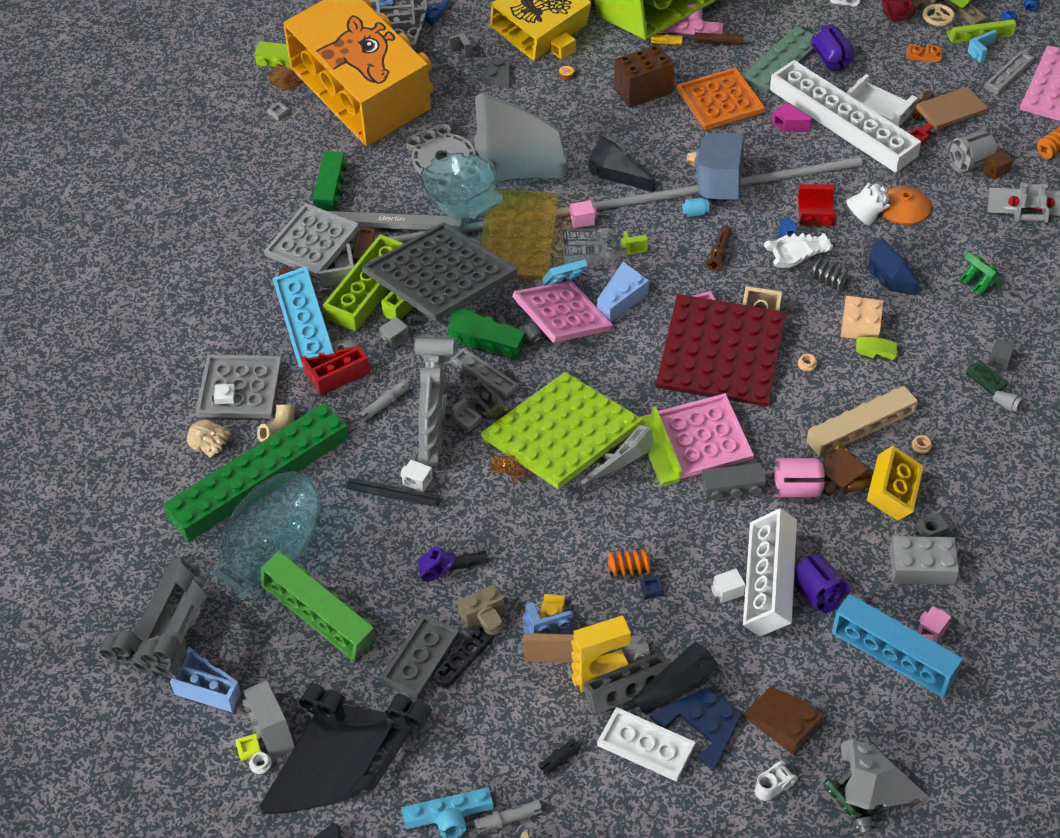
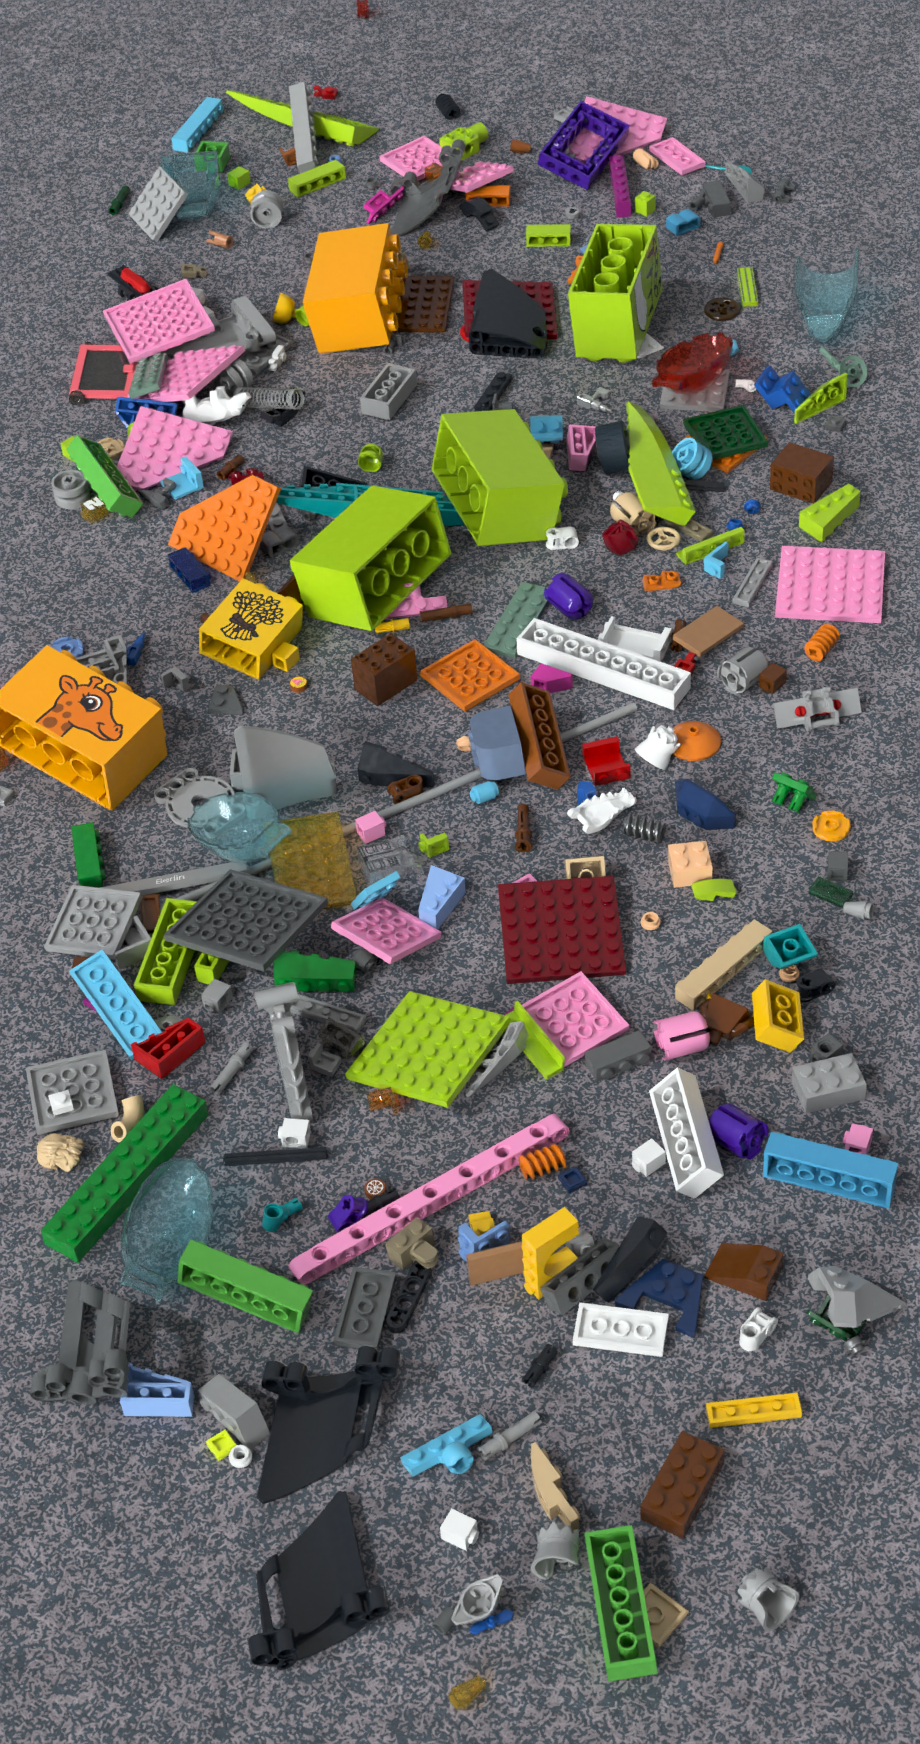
camera: 15 degrees left, 5 degrees down
(376, 546) = (276, 1214): none -> teal pin
(469, 545) = (374, 1187): none -> dark orange tile
(503, 572) = (418, 1203): none -> bright pink beam
(627, 187) = (406, 788): none -> reddish brown piece
(761, 167) = (539, 736): none -> dark orange brick
(928, 420) = (788, 947): none -> teal slope
(943, 461) = (814, 985): none -> black piece
(1008, 315) = (831, 826): none -> light orange tile

